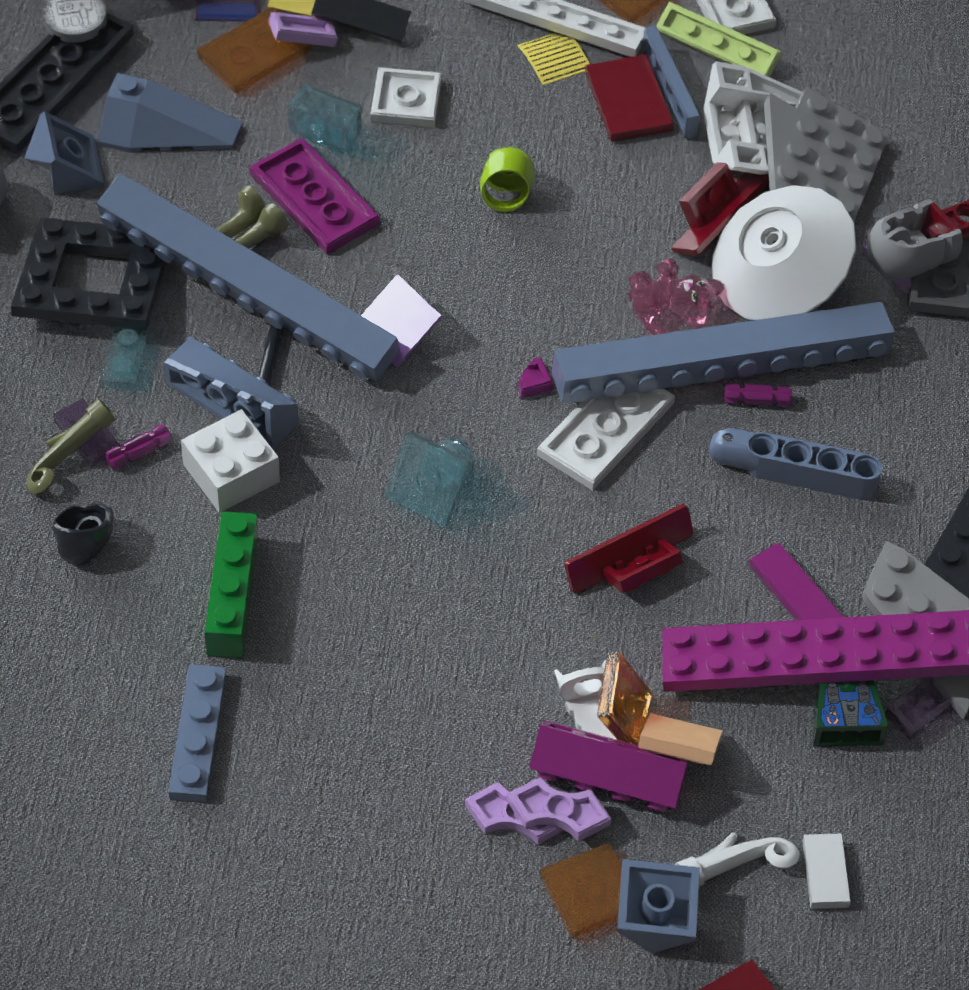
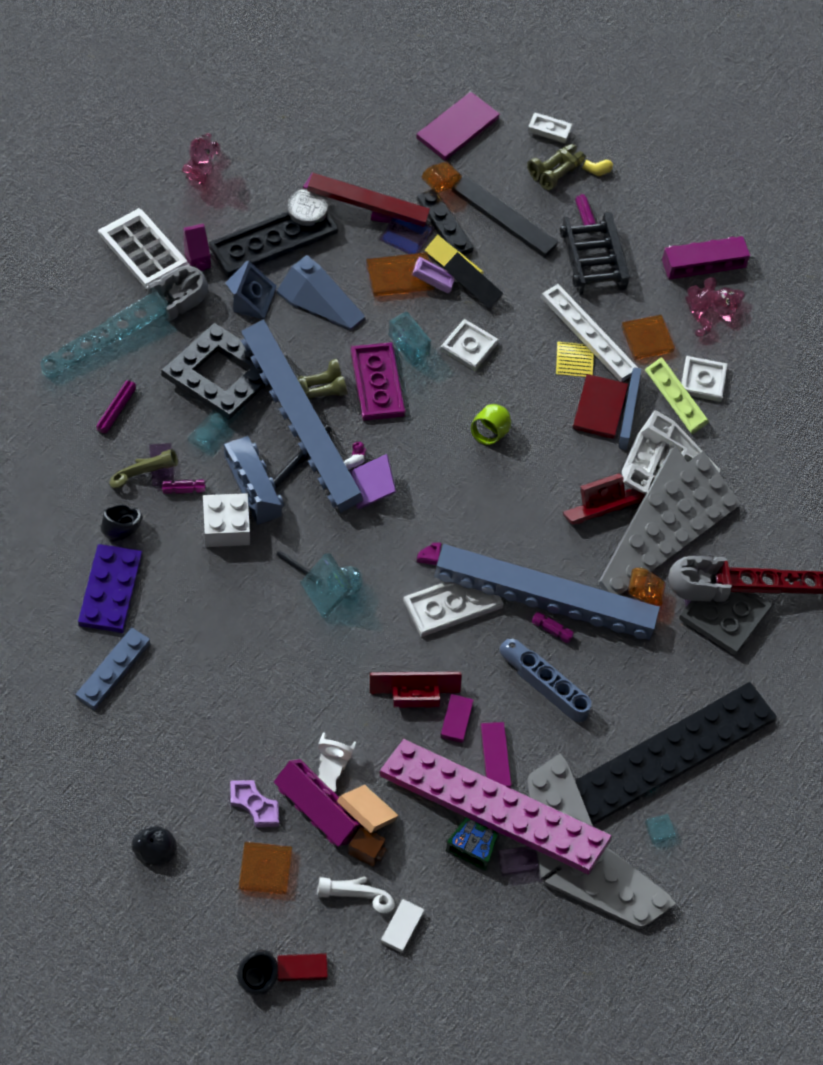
camera: 25 degrees right, 5 degrees up
(122, 628) = (110, 588): none -> dark purple plate
(231, 585) = (181, 593): green brick -> none
(352, 295) = (358, 456): none -> arm
(359, 476) = (292, 562): none -> black piece
(417, 939) = (154, 845): none -> black hair
(574, 812) = (283, 820): lavender tile -> none
(623, 700) = (349, 769): clear orange tile -> none
(658, 904) = (291, 895): sand blue slope -> none
(688, 297) = (551, 548): clear pink animal -> none
(712, 790) = (367, 846): none -> reddish brown brick
(713, 569) = (456, 718): none -> magenta tile
(797, 270) = (620, 549): white dish -> none
(854, 290) = (646, 586): none -> clear orange beam

